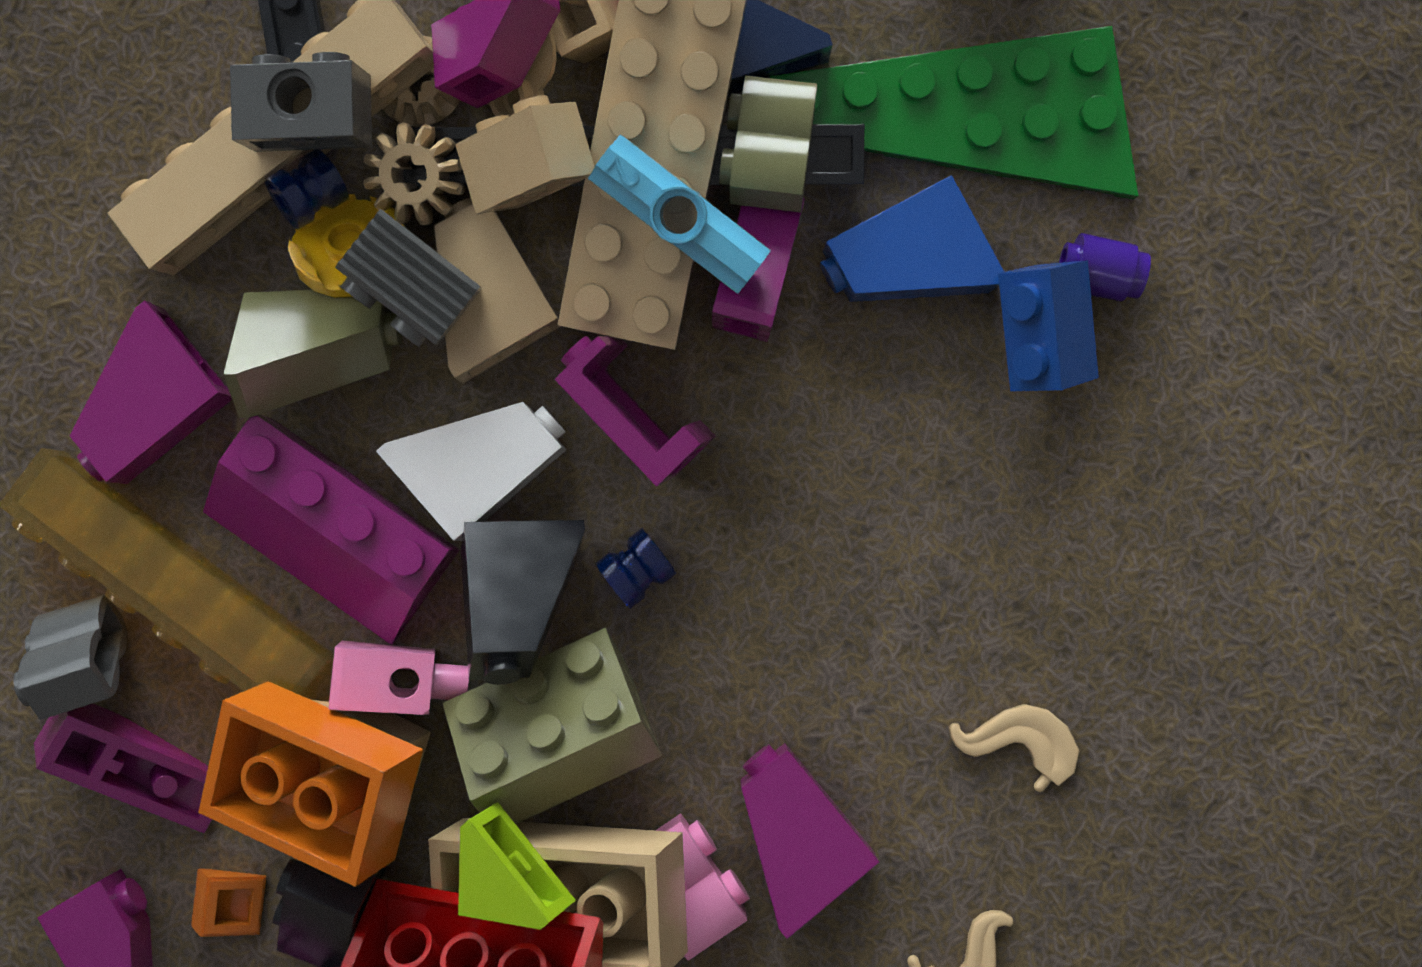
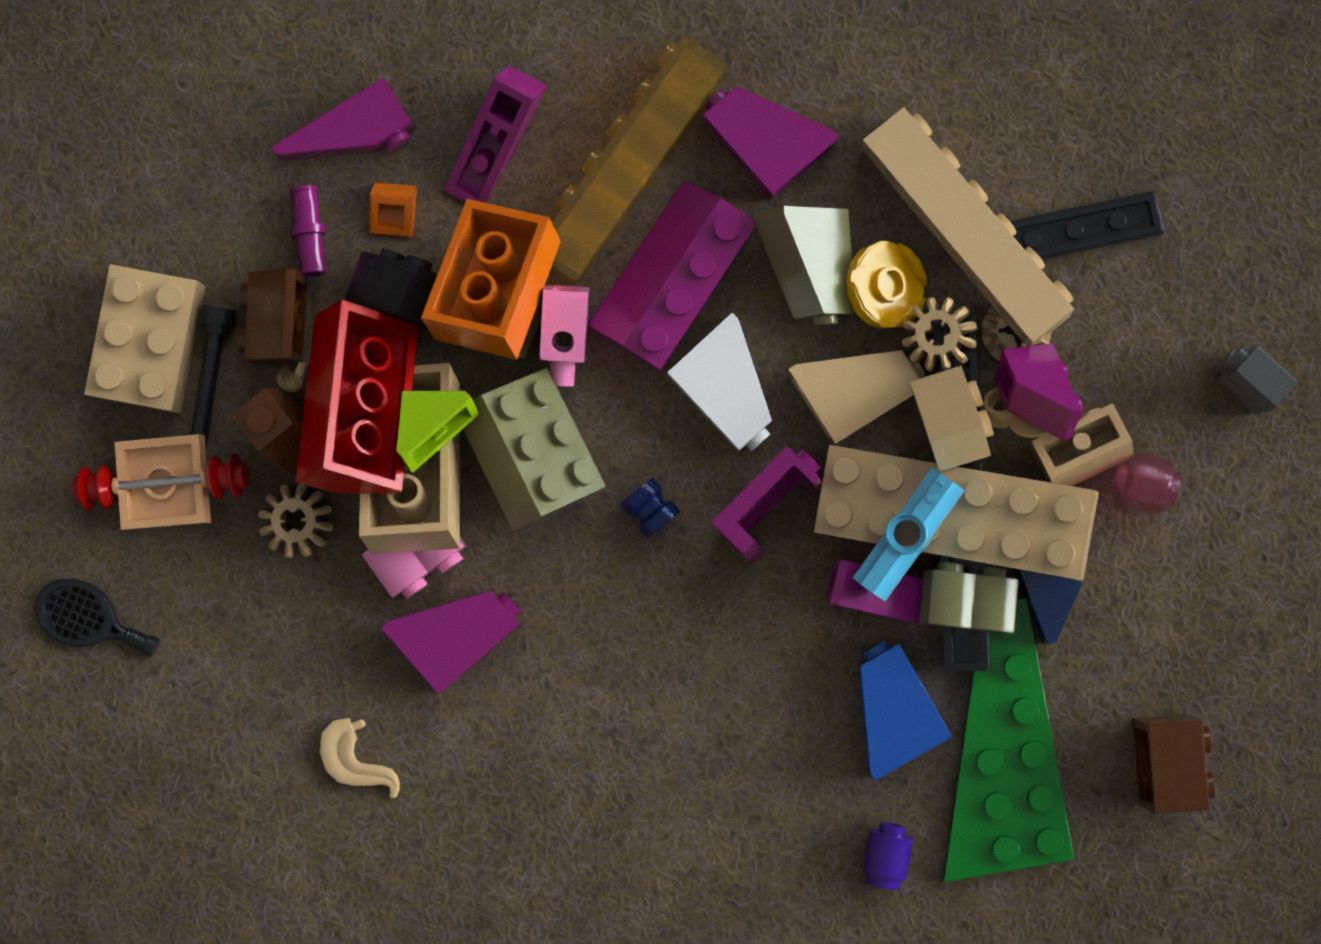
camera: 90 degrees right, 0 degrees up
(72, 657) = (574, 94): dark grey brick -> none
(265, 96) = (973, 279): dark grey brick -> none
(305, 190) = (926, 254): clear blue wheel -> none
(407, 278) = (858, 334): dark grey brick -> none
(513, 590) = (631, 416): black slope -> none
(1038, 729) = (536, 814): tan piece -> none
(1048, 326) = (840, 812): blue brick -> none

